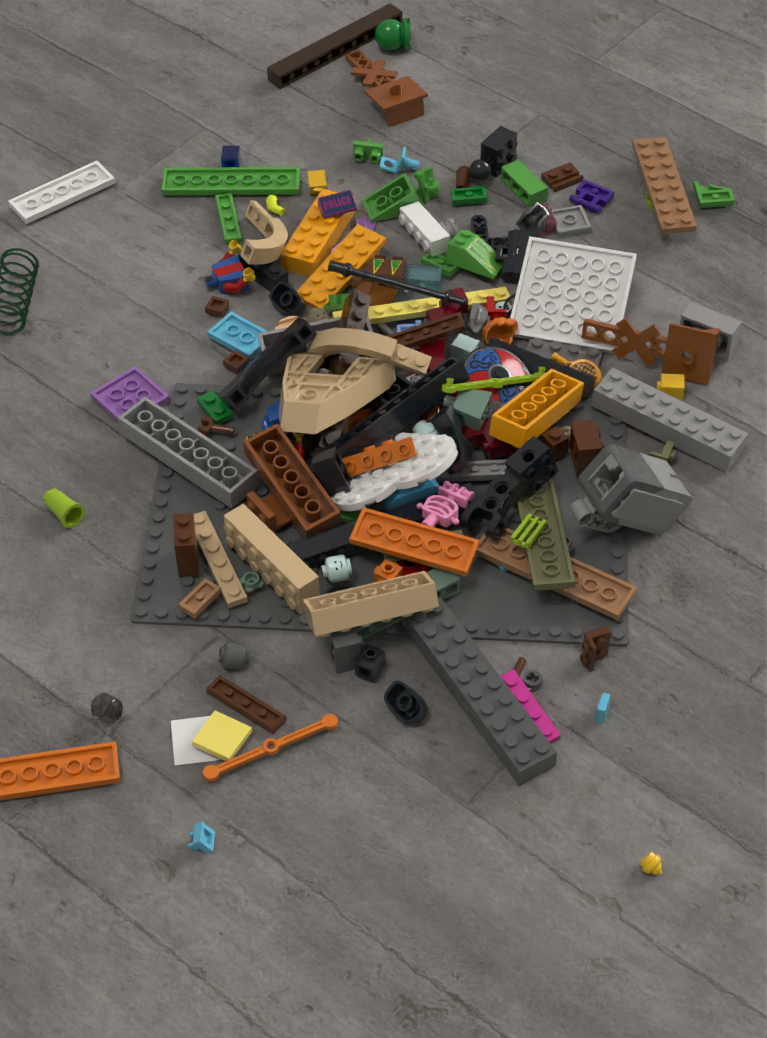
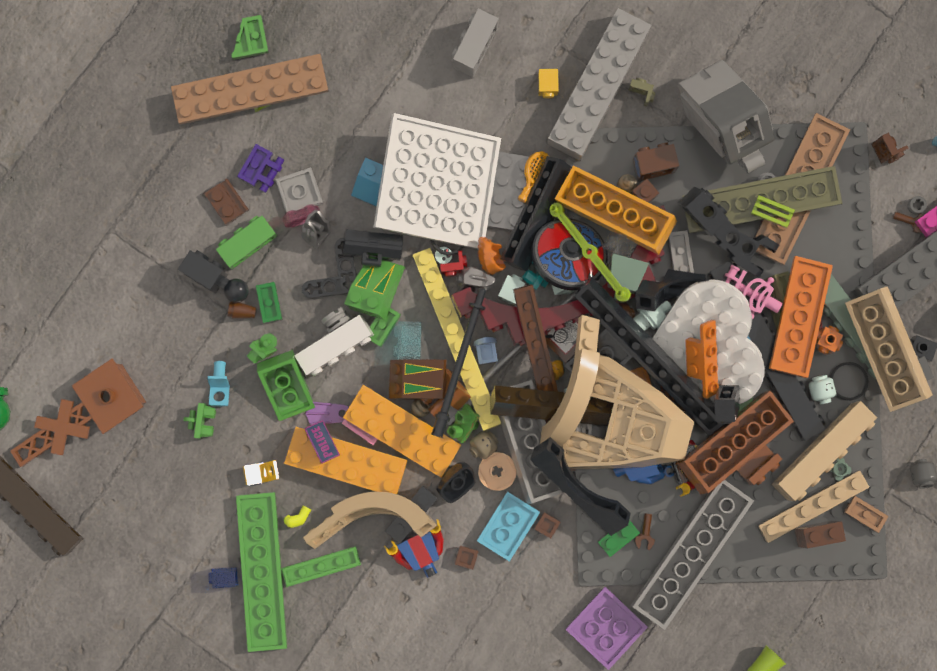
camera: 100 degrees left, 35 degrees up
(697, 342) = (514, 74): dark orange piece -> none

